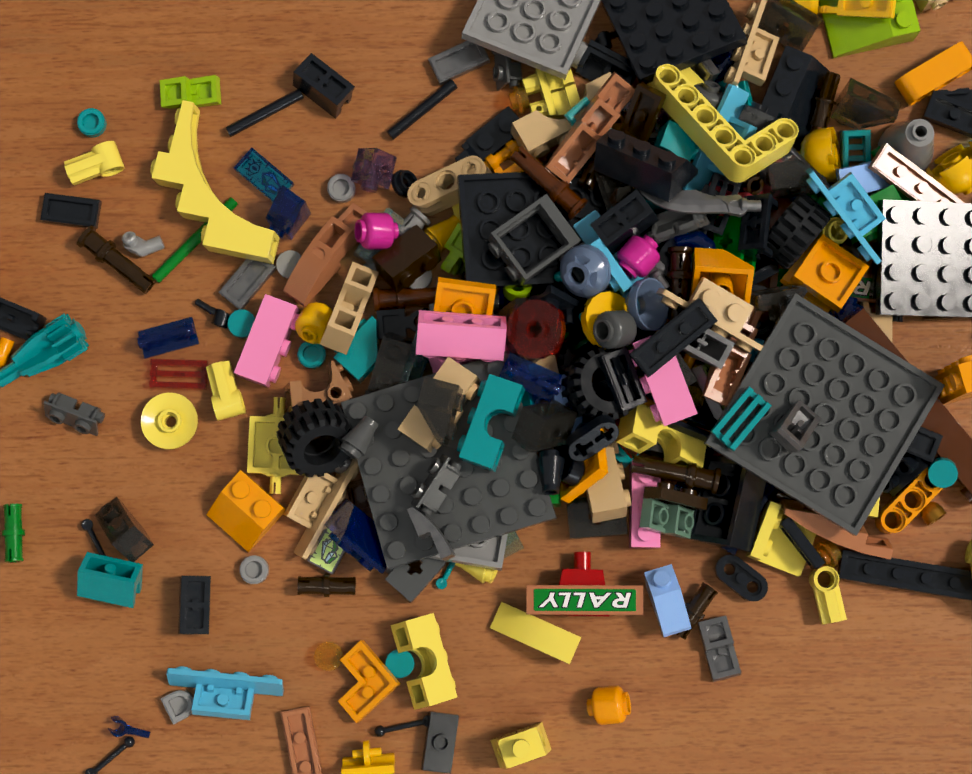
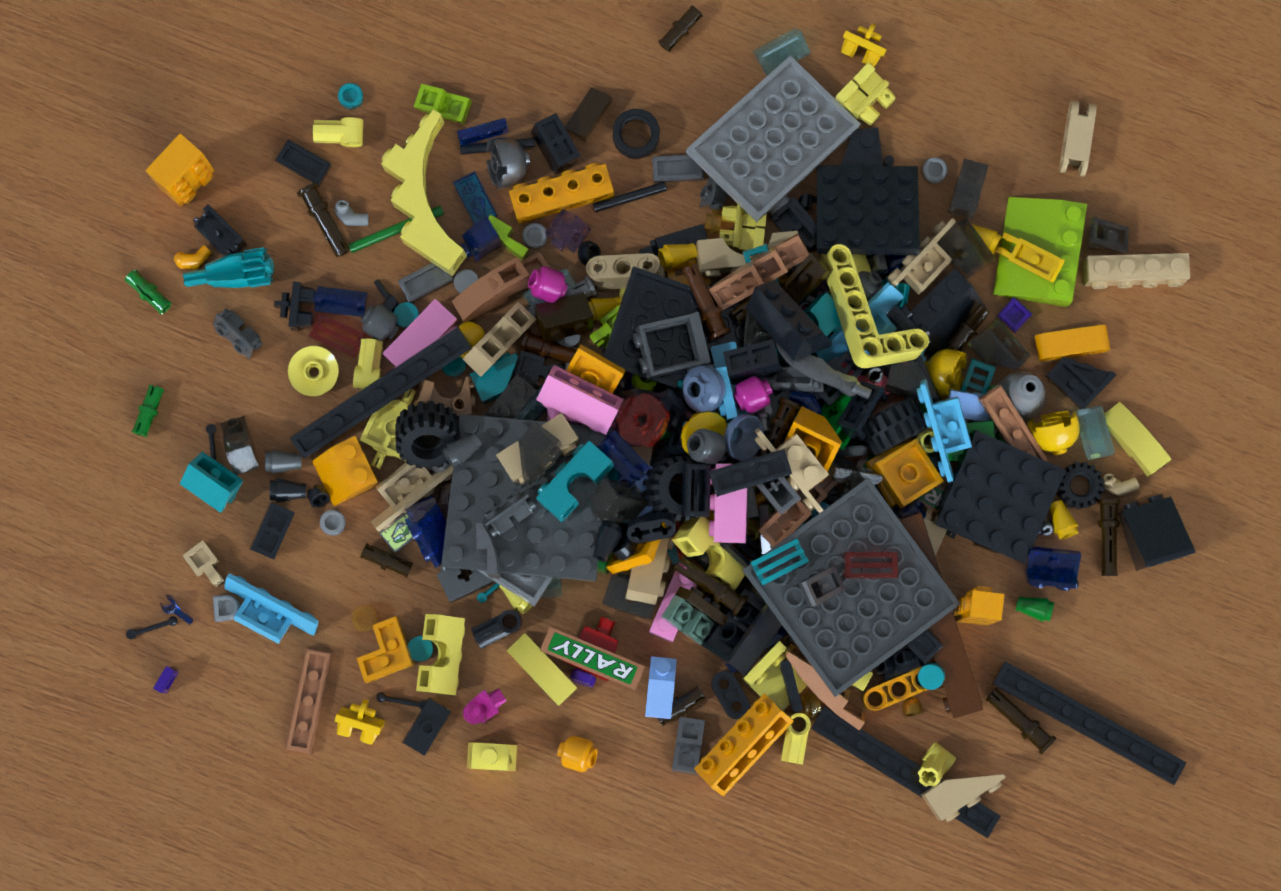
camera: 15 degrees right, 0 degrees up
(129, 372) = (300, 295): none -> black hips
(134, 666) = (202, 561): none -> tan plate
(174, 528) = (280, 461): none -> dark grey cone
(191, 556) = (286, 490): none -> black cone
(217, 342) = (379, 322): none -> dark grey head
(227, 548) = (318, 496): none -> black hinge
(243, 103) = (483, 131): none -> clear blue tile
(249, 413) = (381, 392): none -> black plate
(281, 123) = (507, 161): none -> flat silver cylinder
(320, 207) = (505, 232): none -> lime slope
(344, 41) = (588, 114): none -> dark brown slope
(354, 130) = (563, 192): none -> light orange brick
(396, 21) = (636, 114): none -> black tyre
(469, 611) = (495, 629): none -> black piece
(492, 697) = (483, 707): none -> dark pink hips
(495, 147) = (676, 254): none -> yellow cone
(581, 624) = (583, 678): none -> dark purple tile
(778, 624) = (743, 744): none -> light orange brick
(813, 392) = (848, 565): none -> clear red tile
(864, 69) = (1014, 315): none -> dark purple tile

